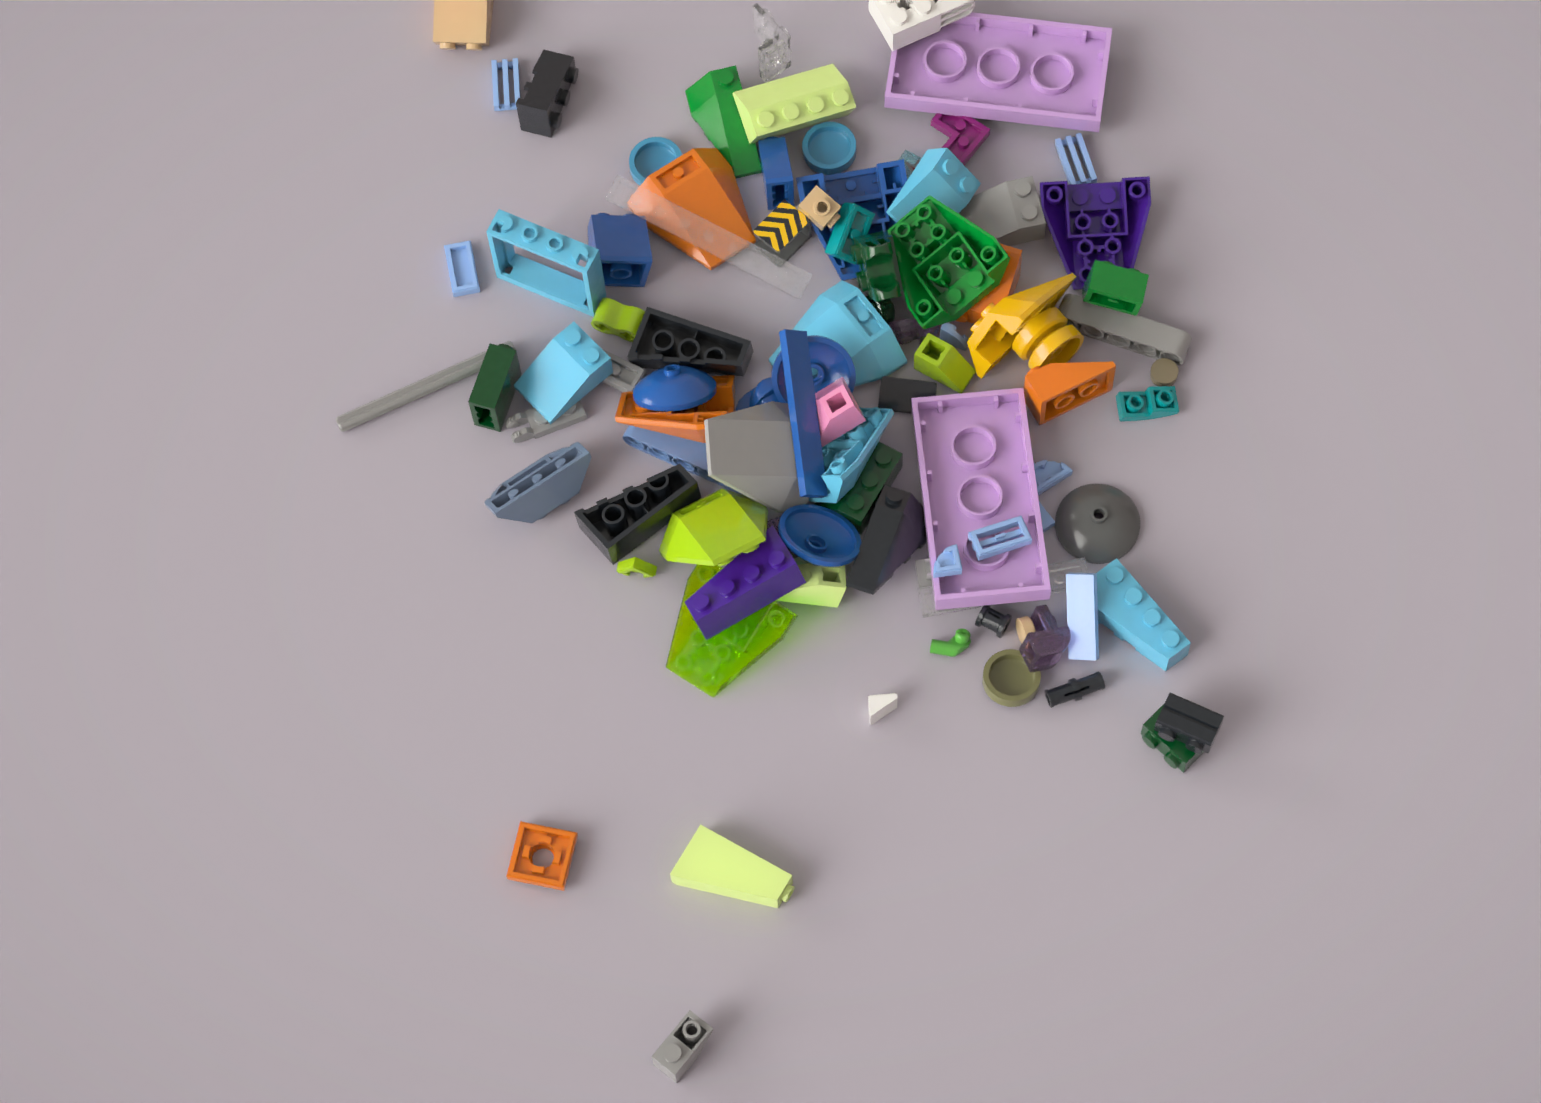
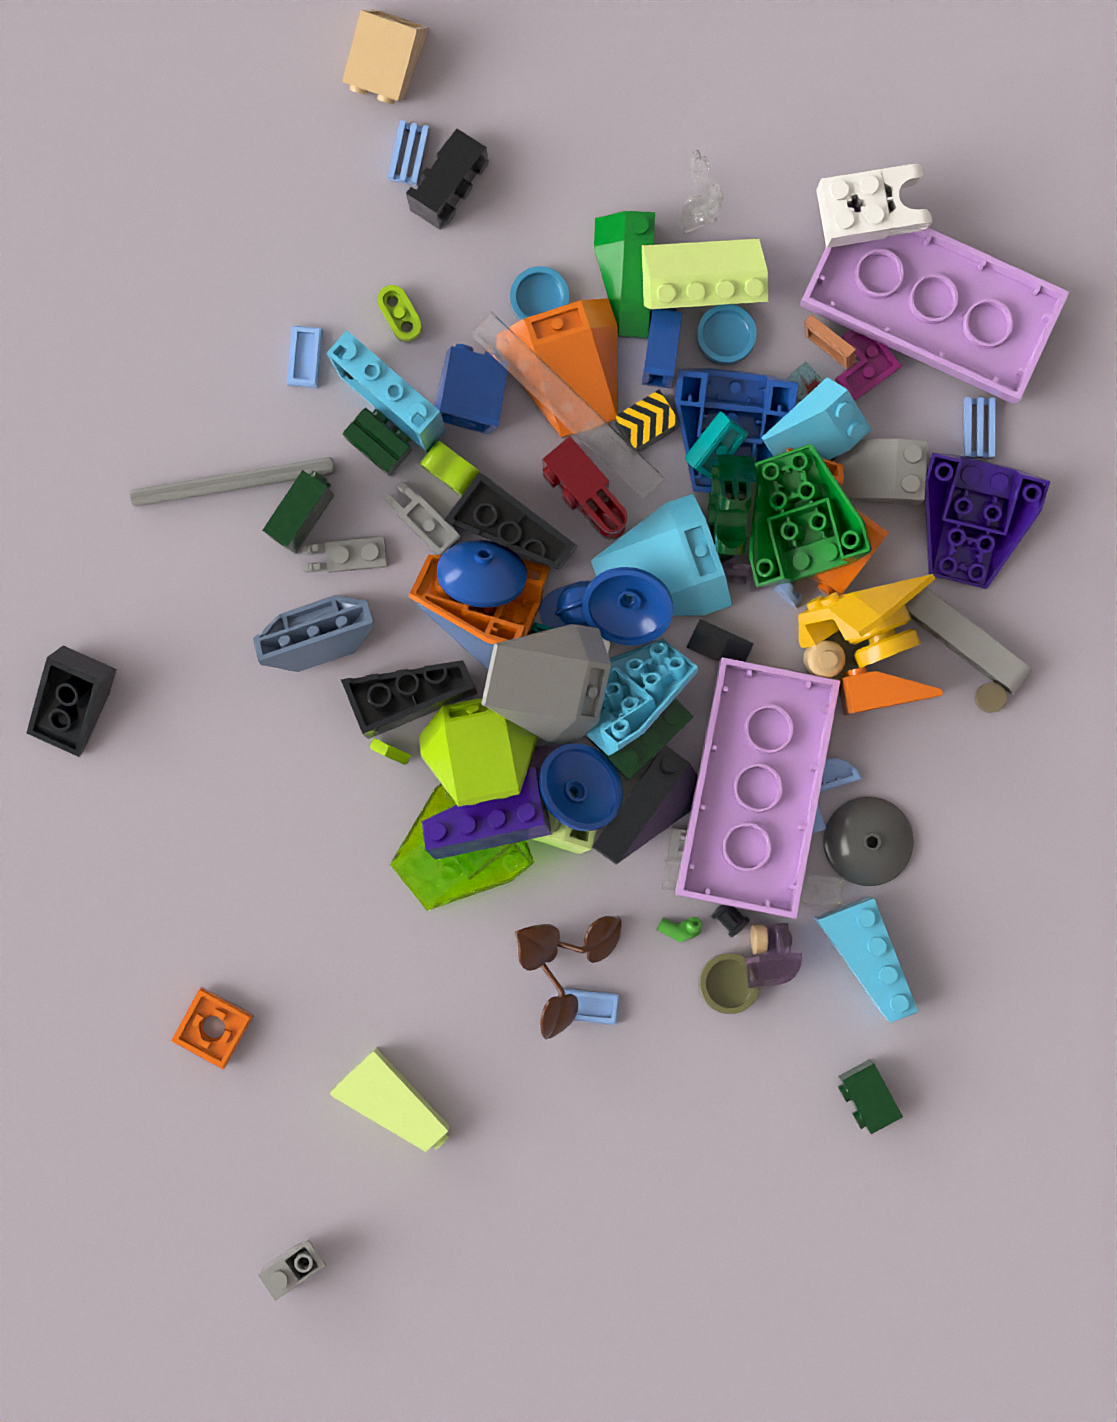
camera: 15 degrees right, 20 degrees up
(329, 608) = (70, 699): none -> black slope
(538, 210) = (399, 314): none -> lime plate
(545, 313) = (378, 441): none -> dark green brick
(564, 373) = (372, 518): medium azure slope -> none
(744, 297) = (584, 488): none -> dark red brick
(803, 413) = (602, 654): blue tile -> none
(820, 208) = (692, 414): tan brick -> none
(822, 670) = (538, 945): none -> reddish brown plant
(836, 411) = (634, 652): bright pink slope -> none
(881, 705) = (588, 975): white slope -> none
(888, 737) = (596, 1006): none -> light blue tile
(921, 126) = (830, 342): none -> nougat tile
(943, 363) = (768, 624): lime slope -> none
(948, 563) = (701, 858): light blue tile -> none
(977, 546) = (789, 843): light blue tile -> none
(1003, 374) = (824, 659): none -> tan head
(1075, 689) = (787, 1014): black pin -> none
(1082, 616) = (820, 948): tile -> none
(1115, 287) = (971, 600): green slope -> none
(1148, 404) = (962, 727): teal slope -> none
(1188, 724) = (887, 1100): black brick -> none

